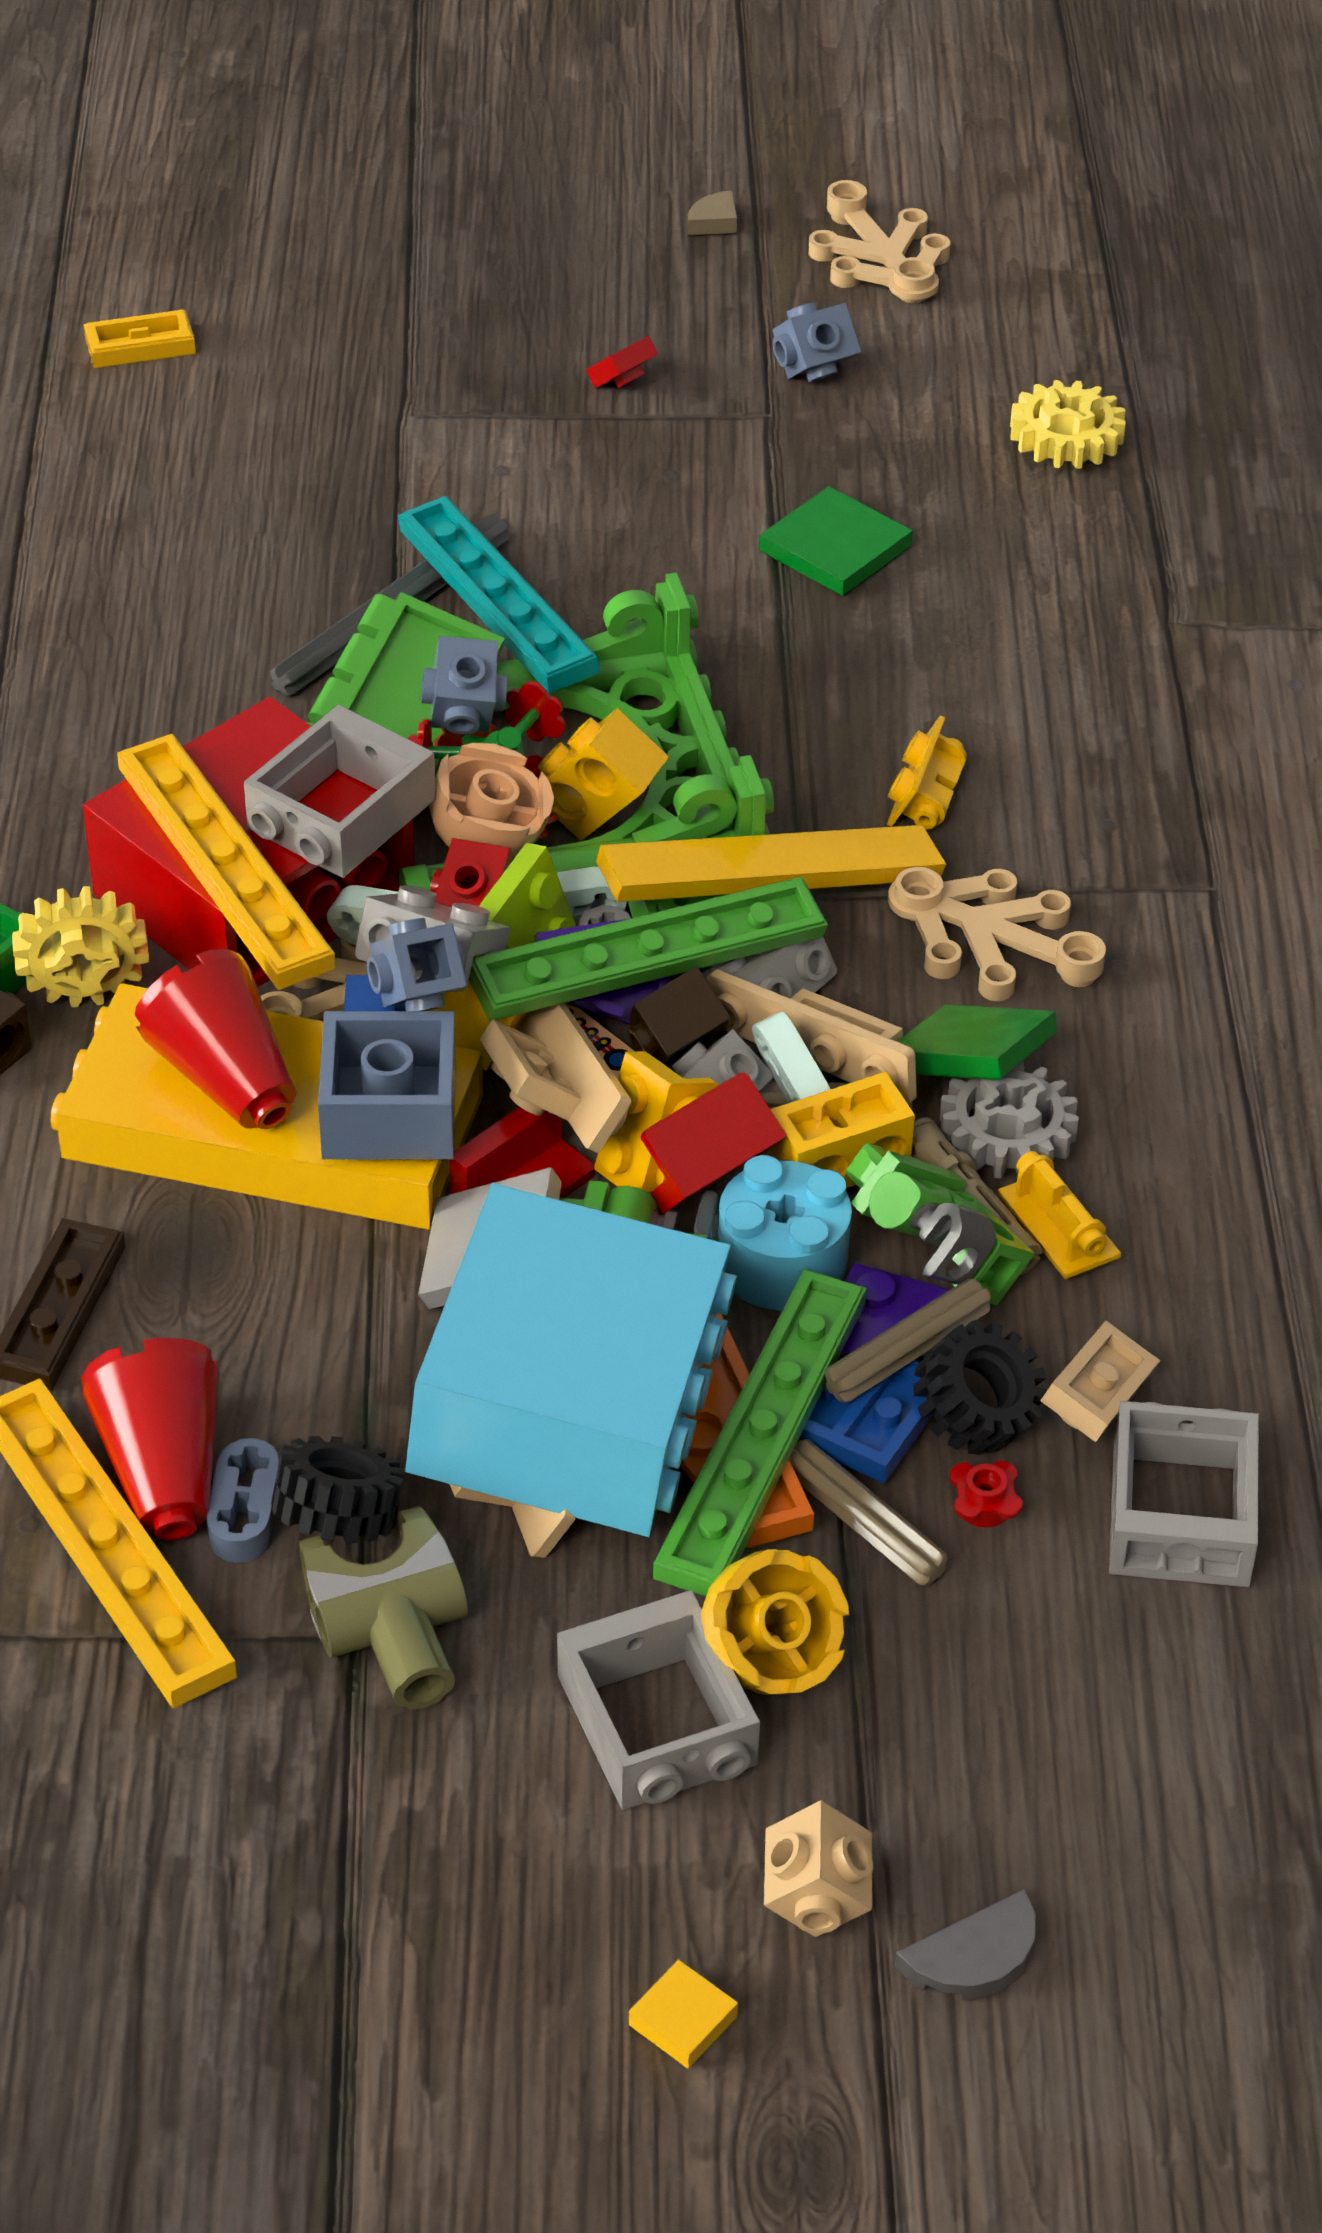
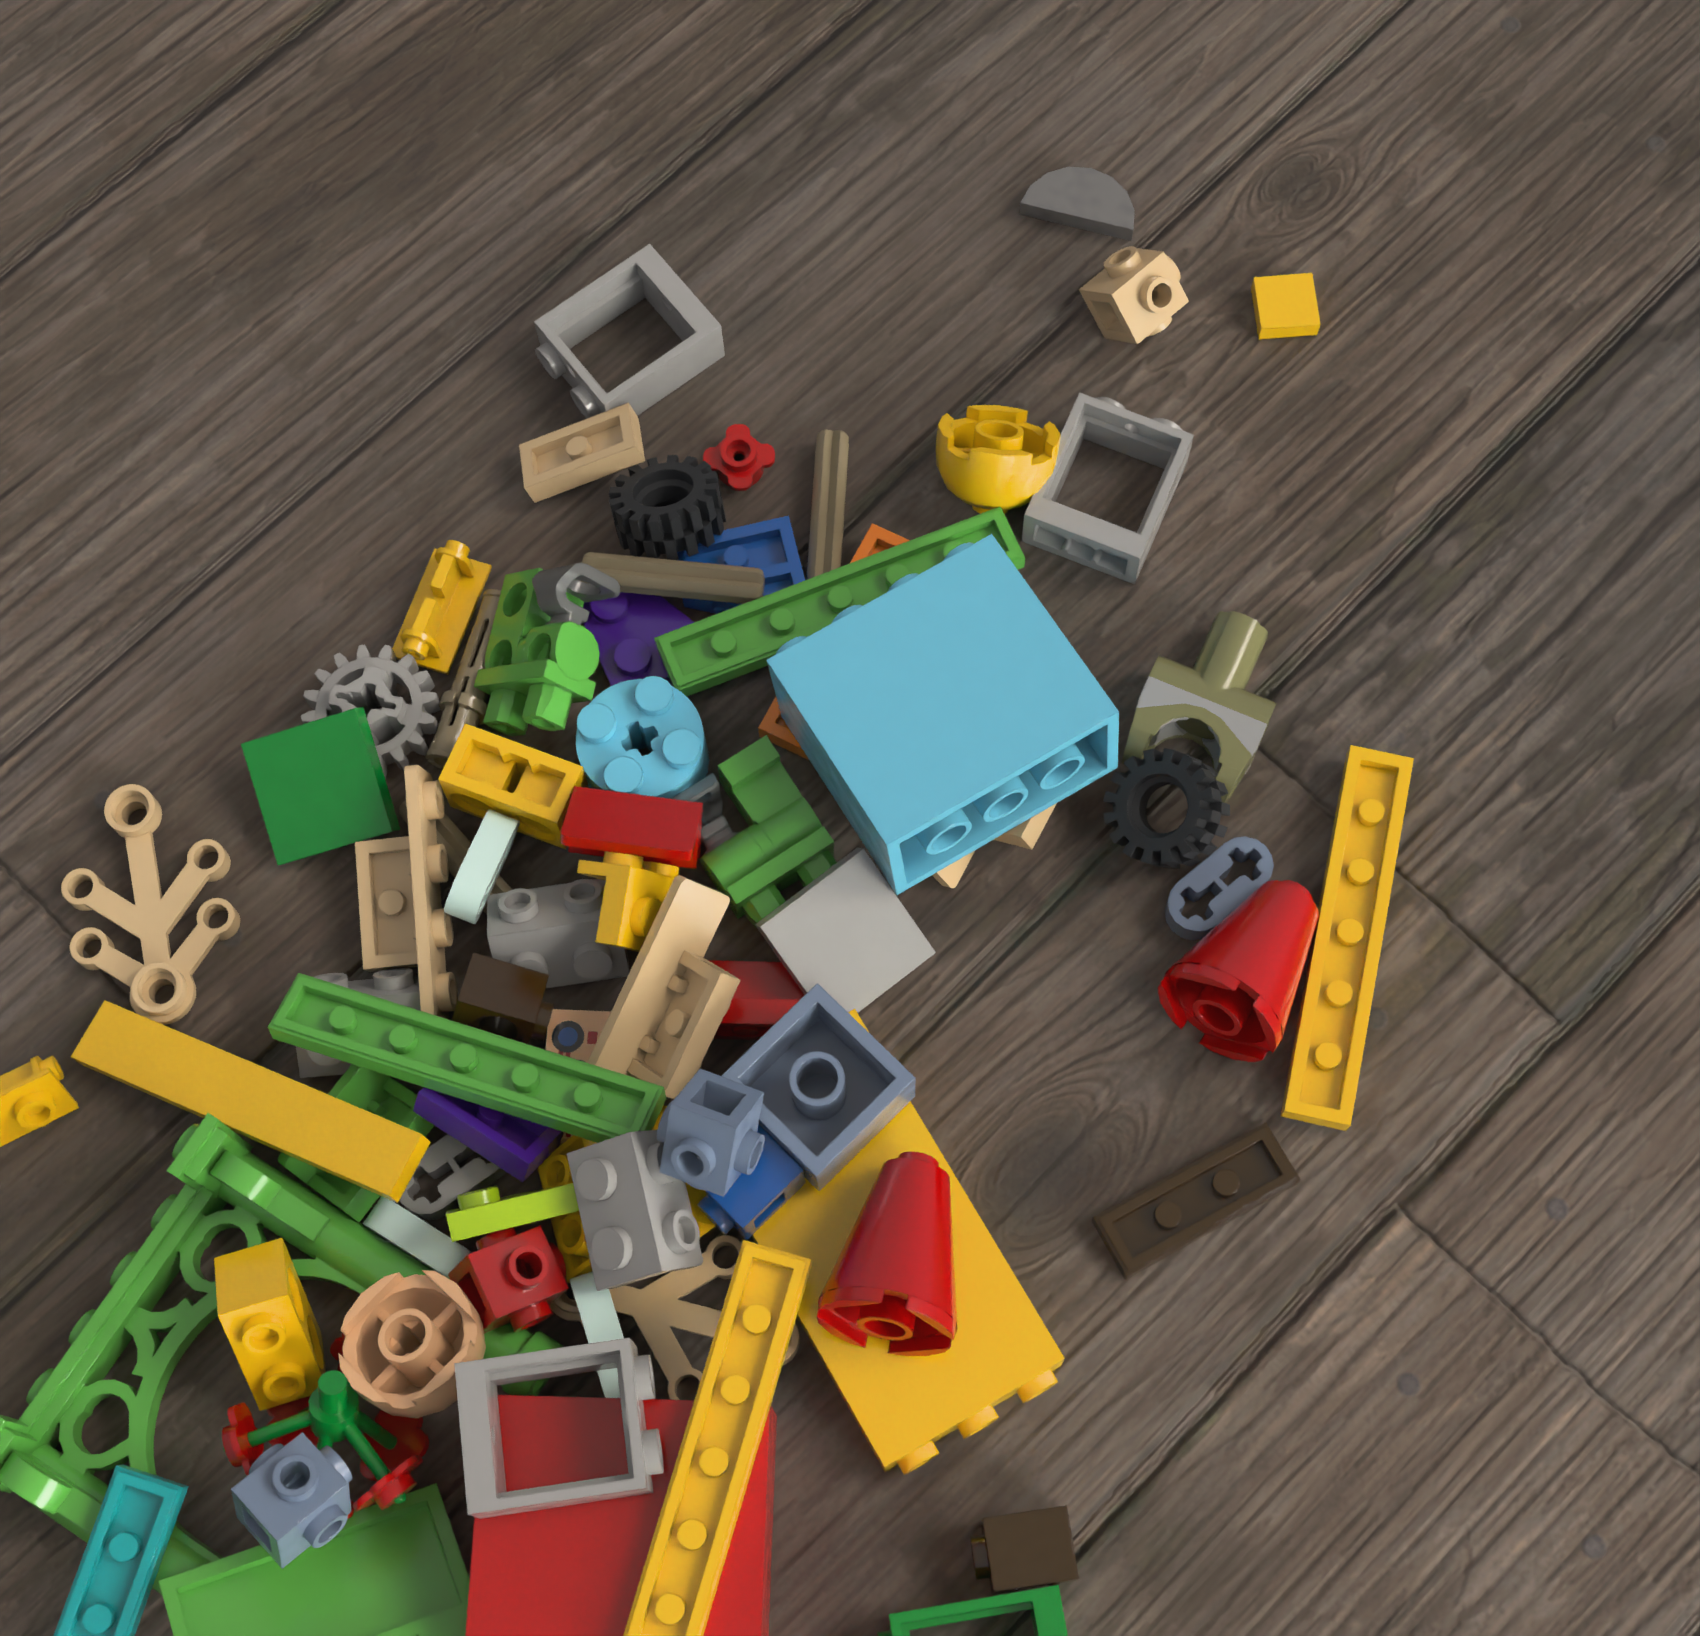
camera: 130 degrees left, 25 degrees up
(80, 946) = (880, 1543): light yellow gear -> none

